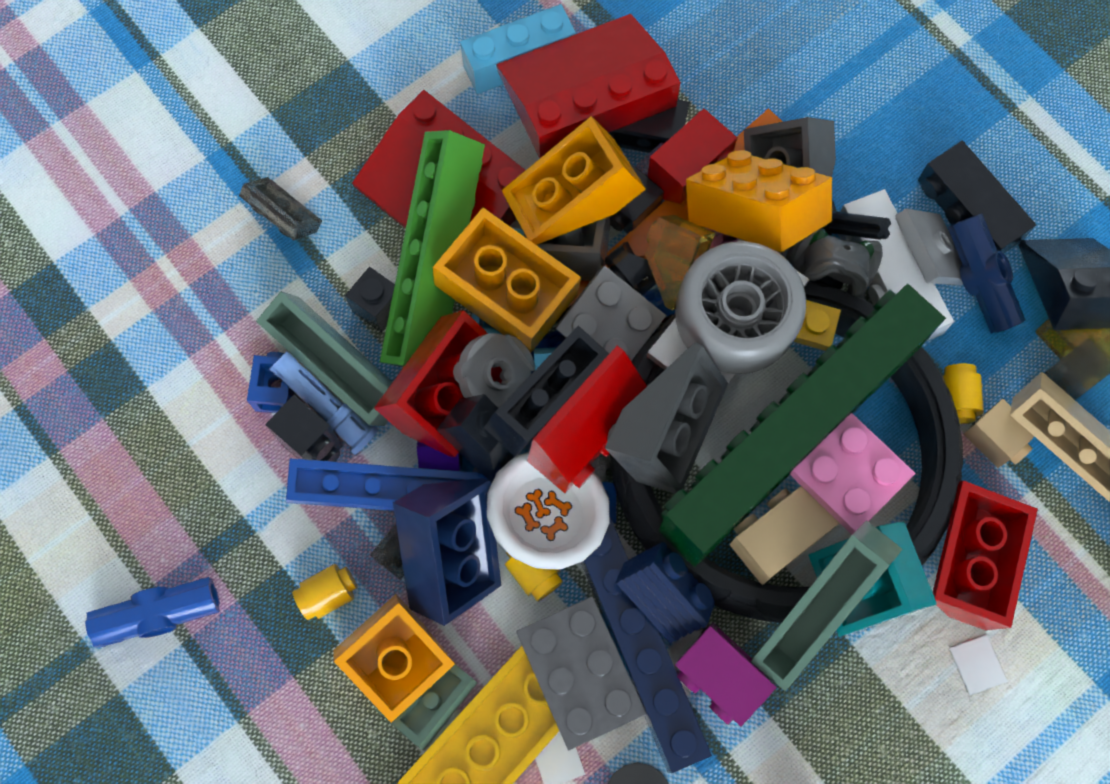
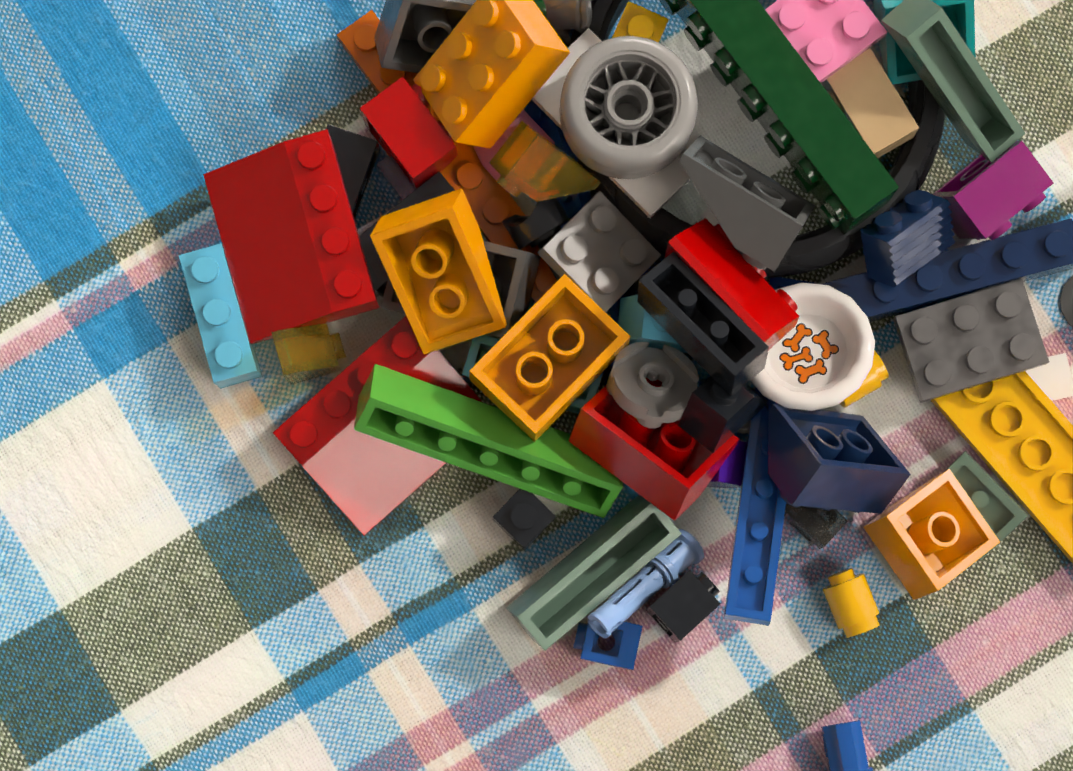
camera: 85 degrees left, 10 degrees up
(280, 208) = (391, 620): clear smoke plate -> none
(495, 108) = (308, 352): none -> clear yellow slope

